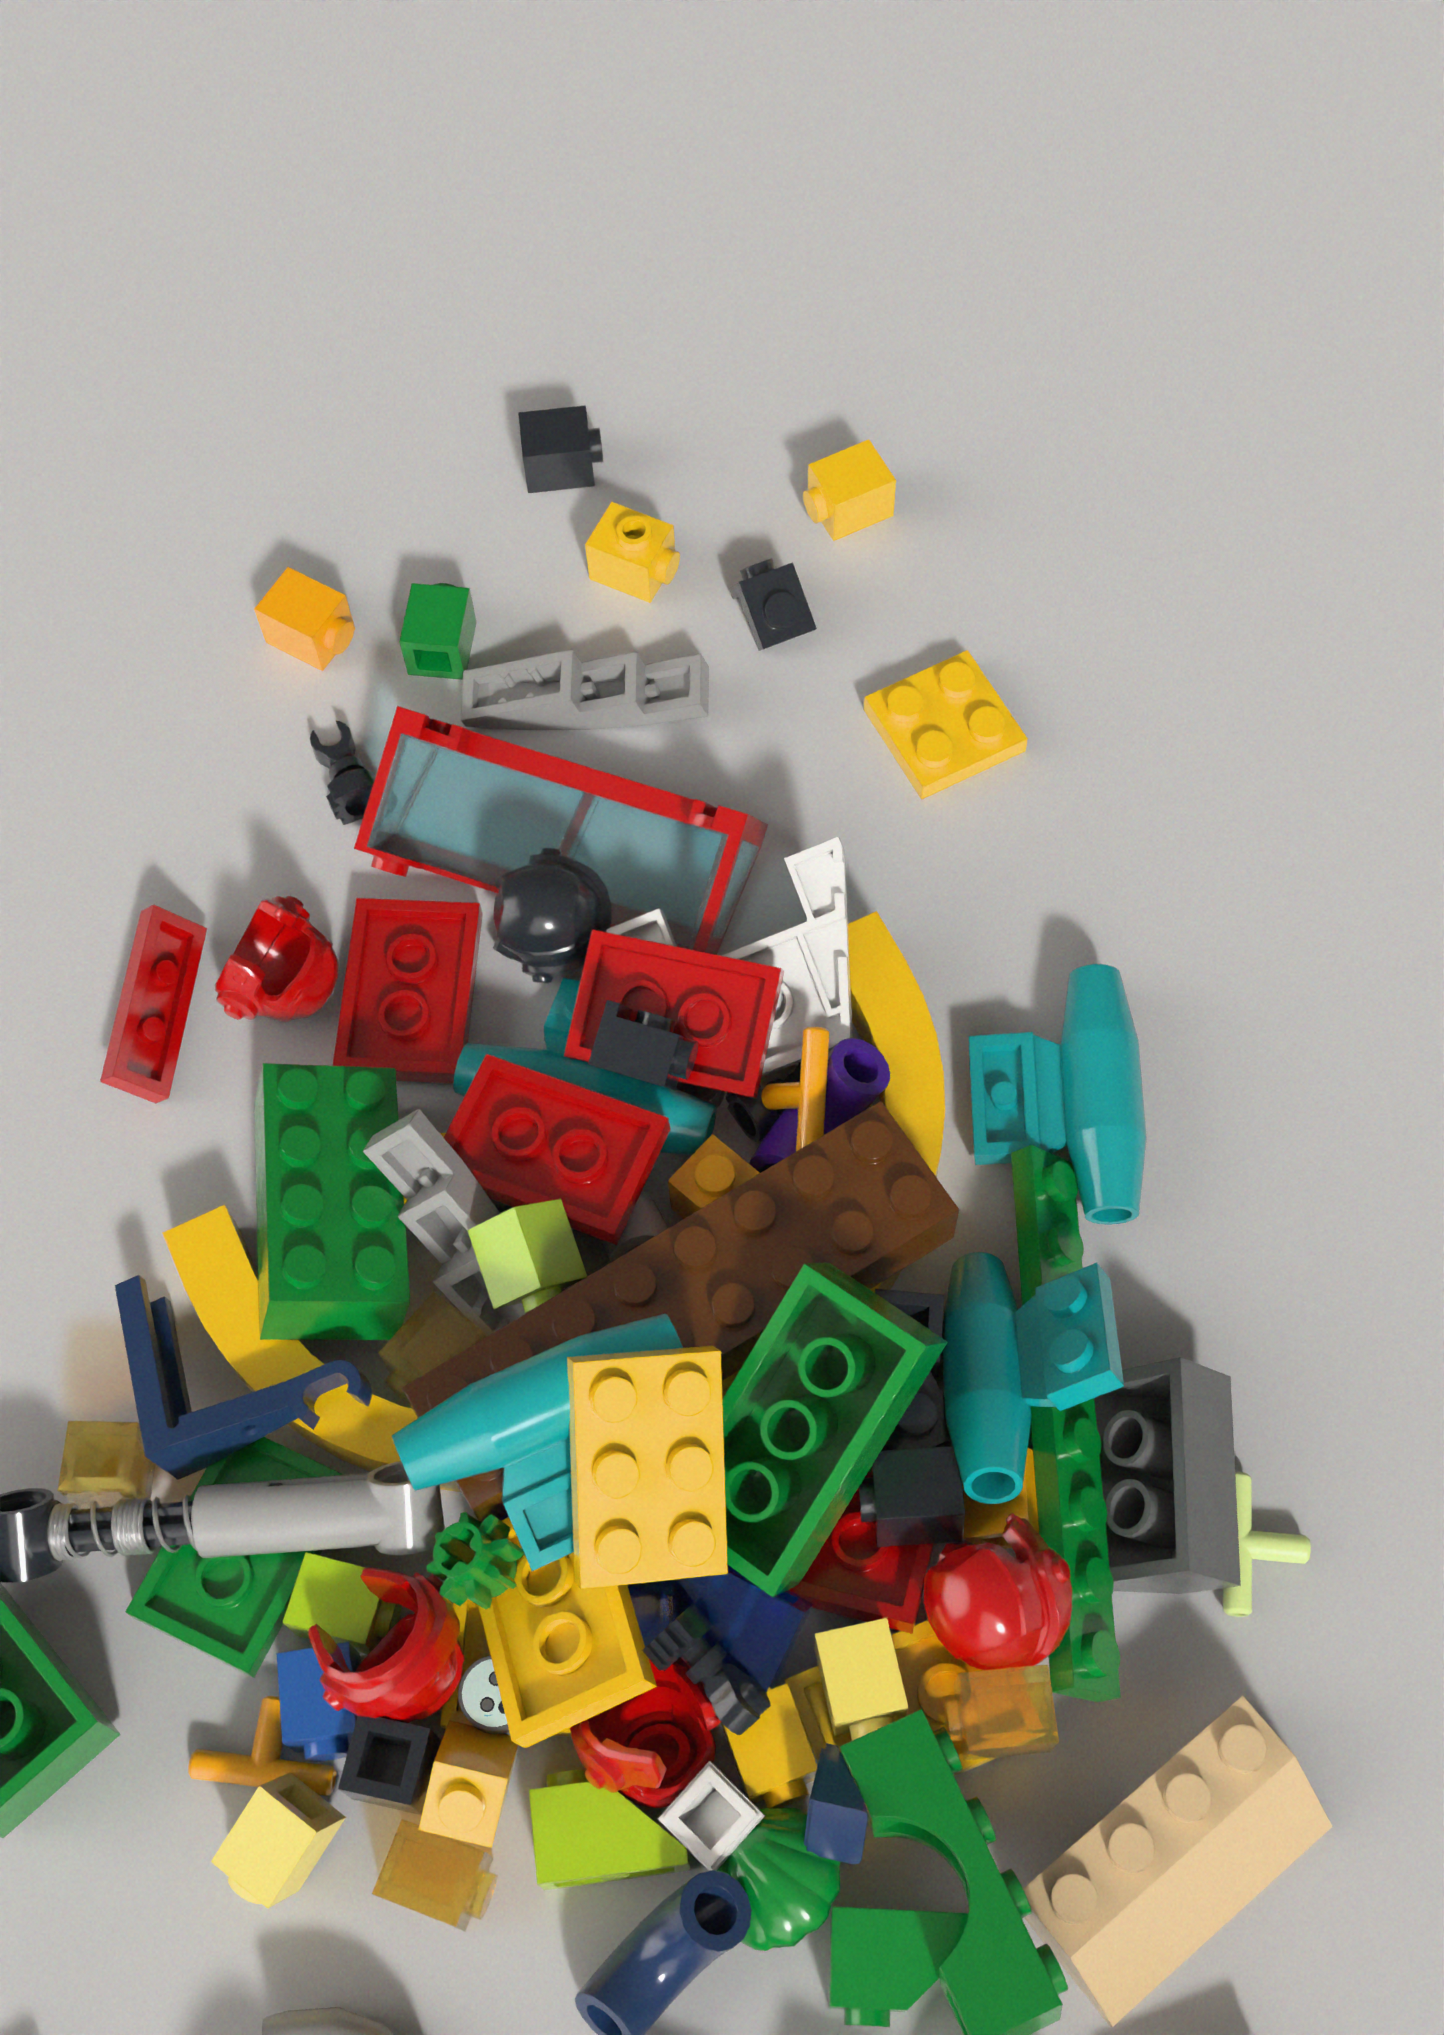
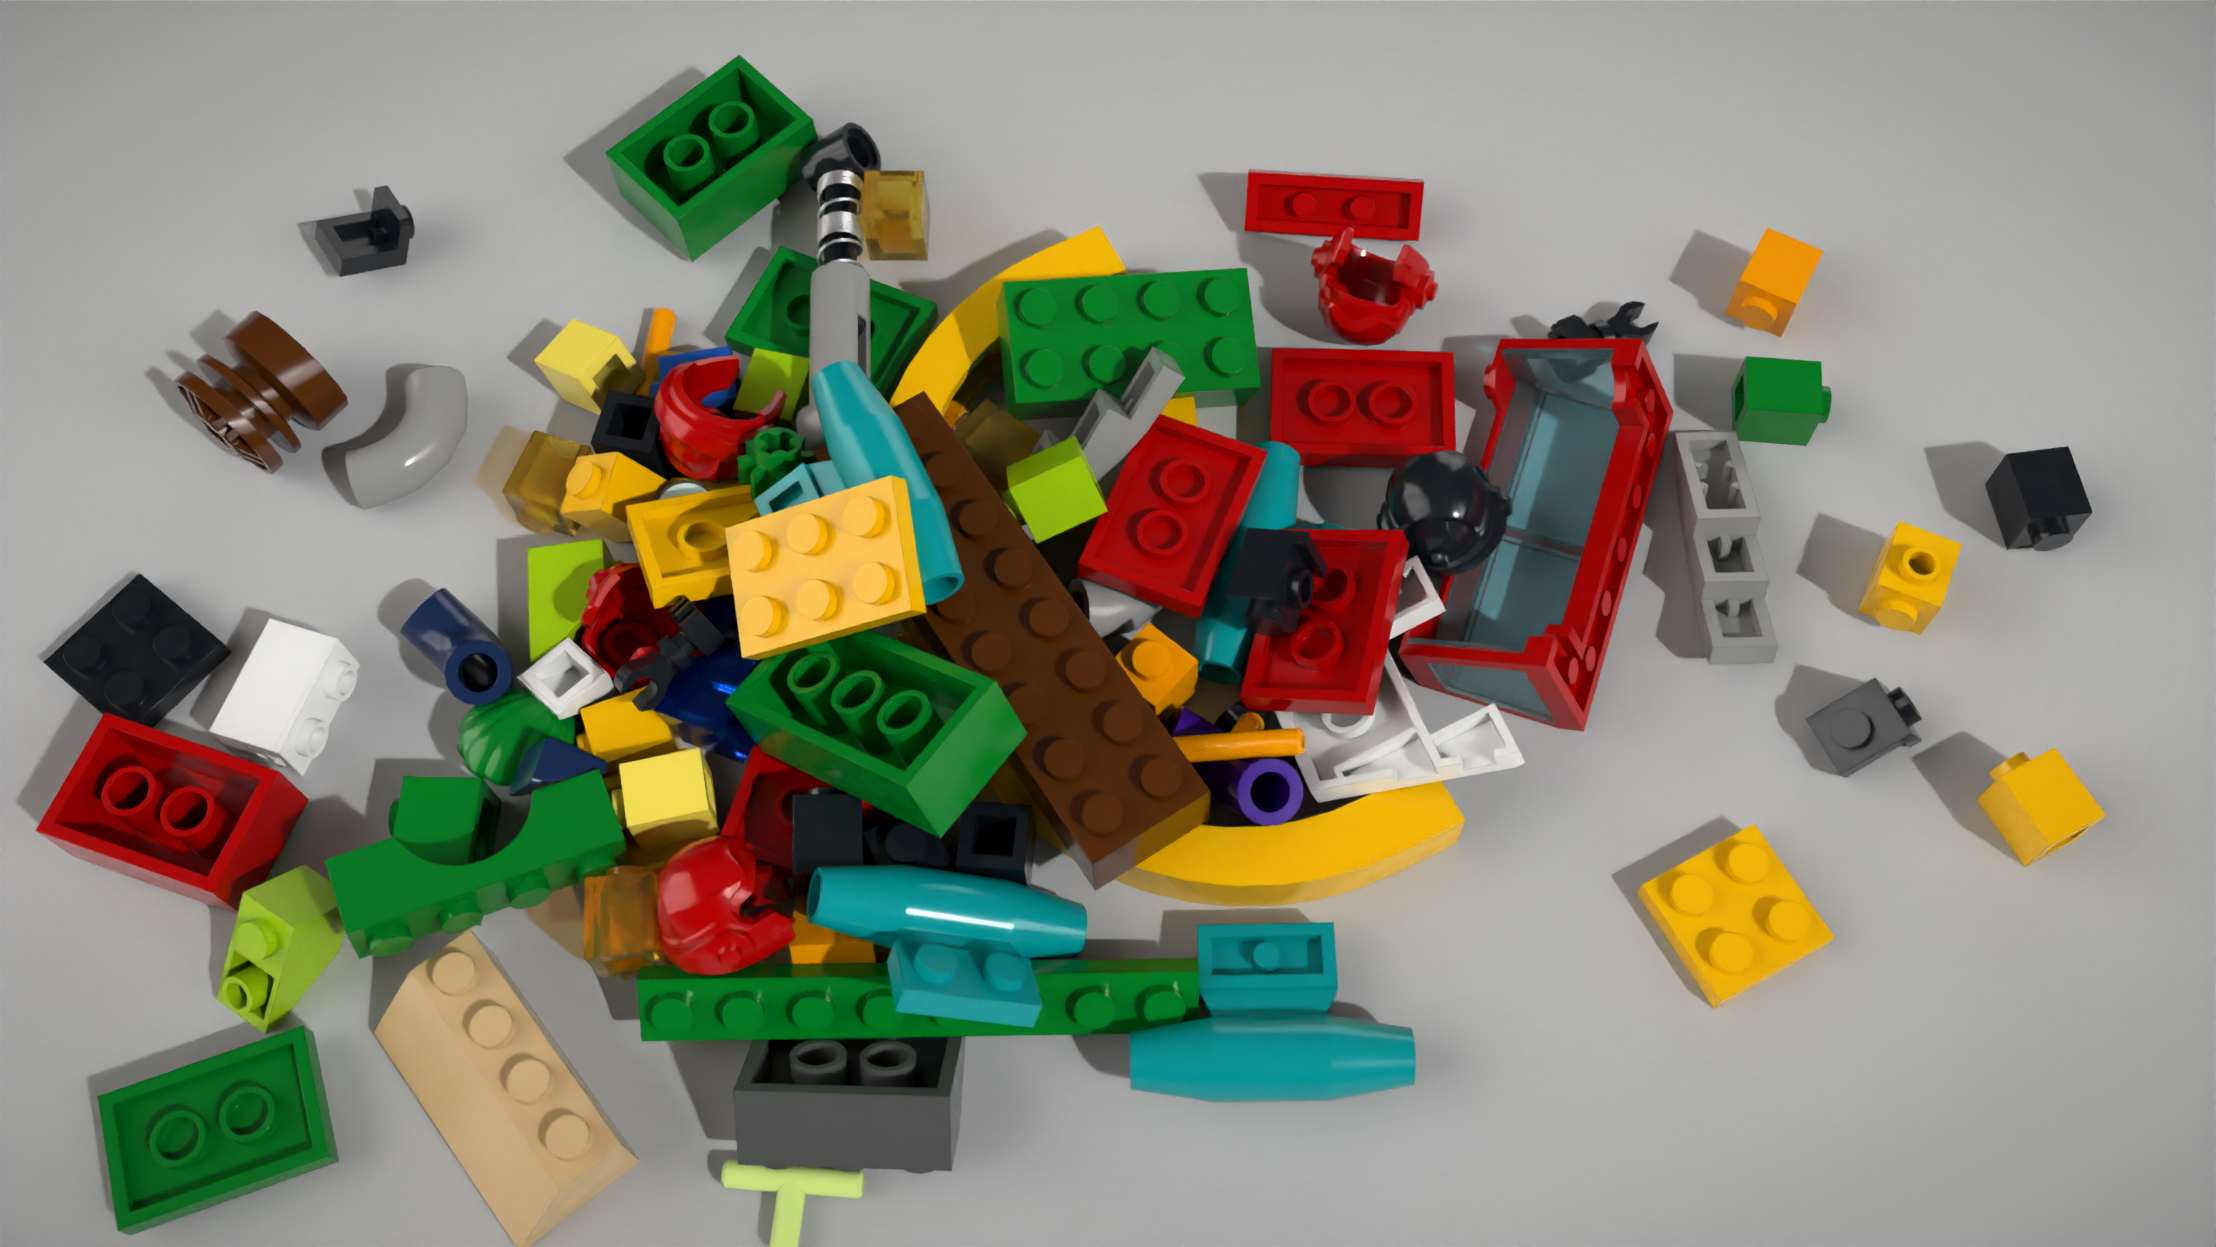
camera: 90 degrees right, 0 degrees up
(192, 1441) = (957, 247): dark blue hinge -> none

